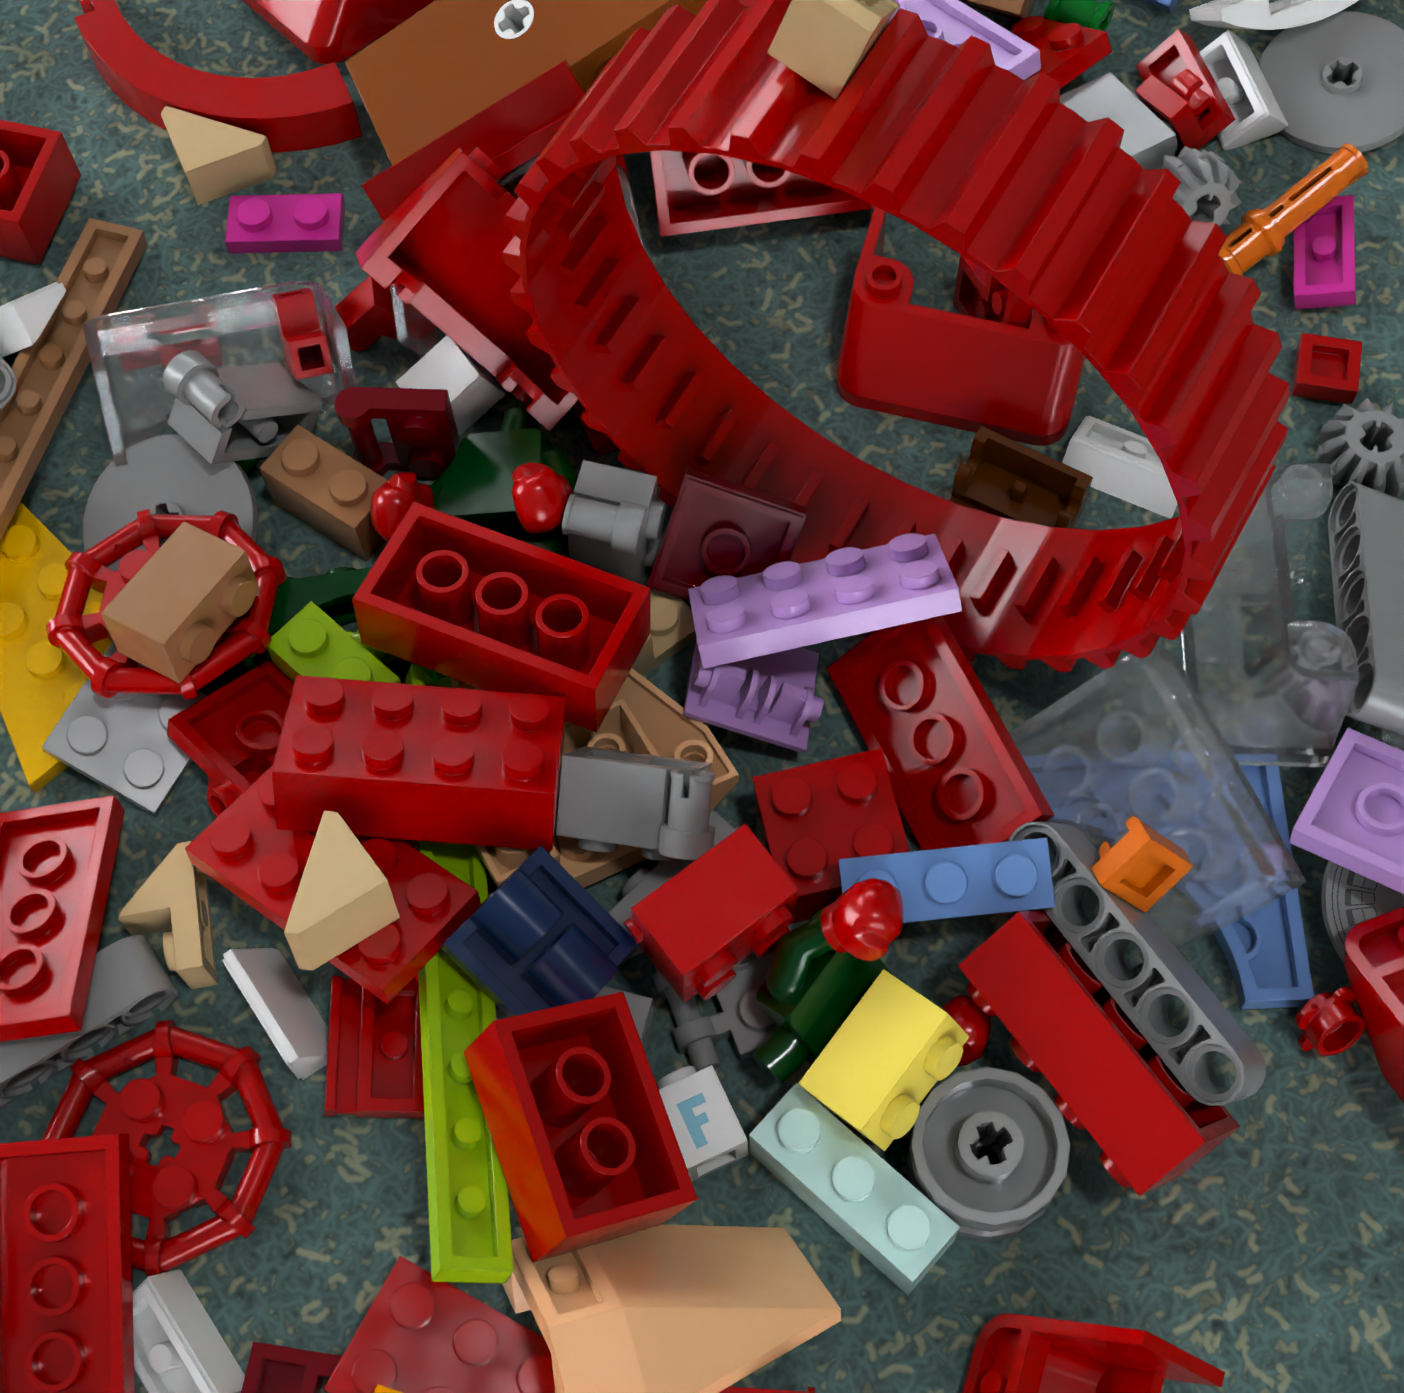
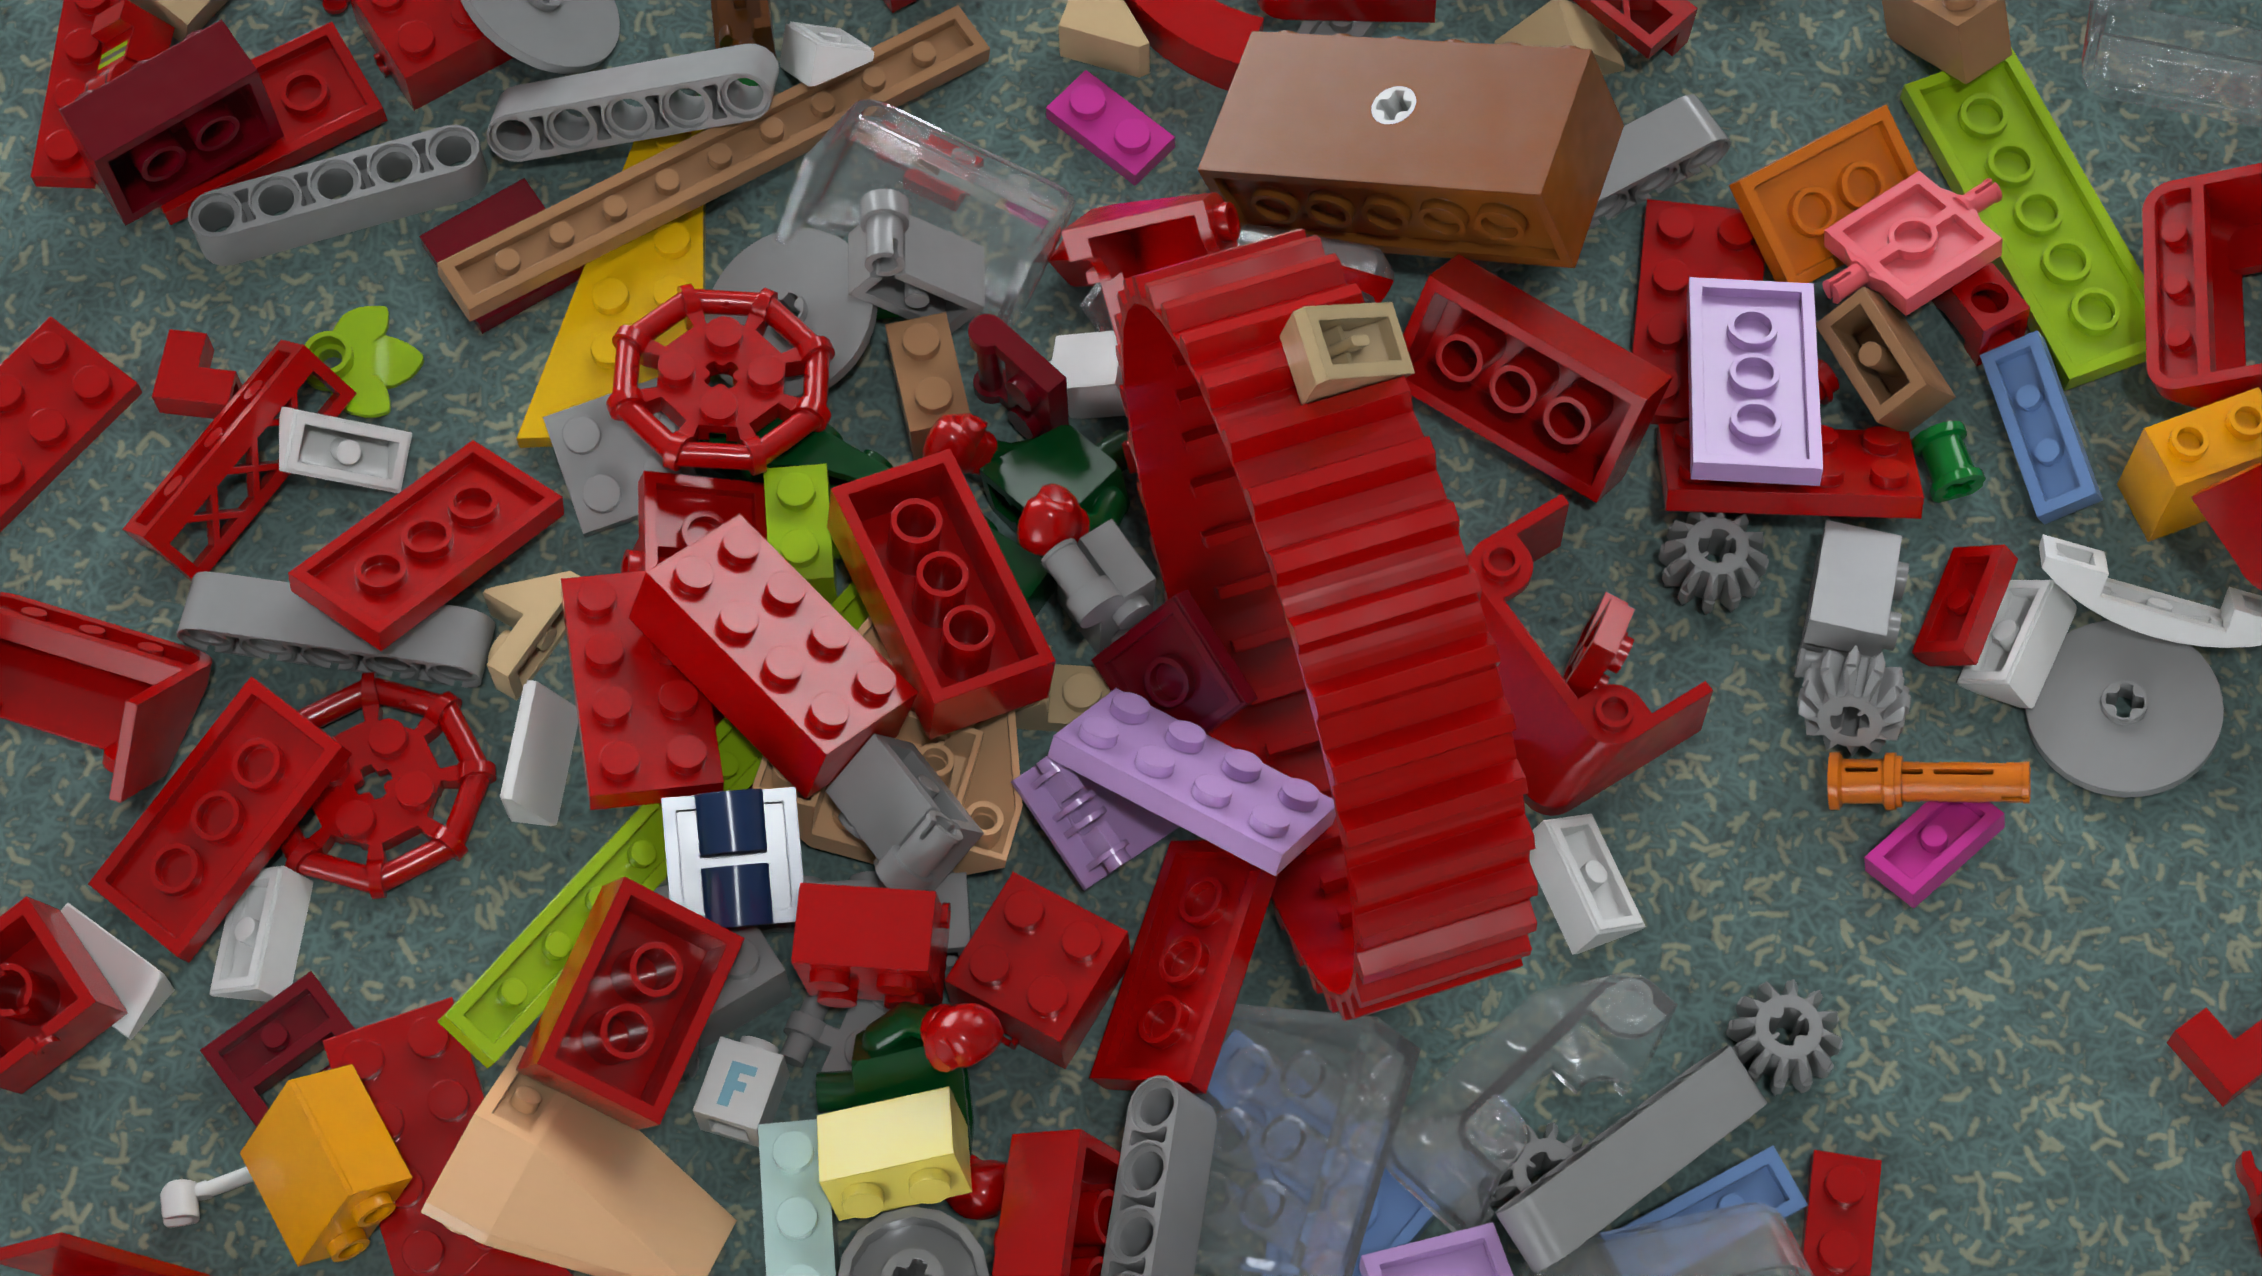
camera: 40 degrees right, 0 degrees up
(181, 602) = (717, 389): medium nougat brick -> none
(301, 335) = (1019, 226): red piece -> none
(338, 897) = (614, 701): tan slope -> none
(374, 1053) = (561, 839): red plate -> none
(505, 131) = (1284, 197): red fence -> none
(962, 879) = (1072, 1073): medium blue plate -> none
(1141, 865) = (1217, 1179): orange tile -> none
(1177, 104) = (1927, 611): red tile -> none
(1327, 368) = (1828, 940): red plate -> none

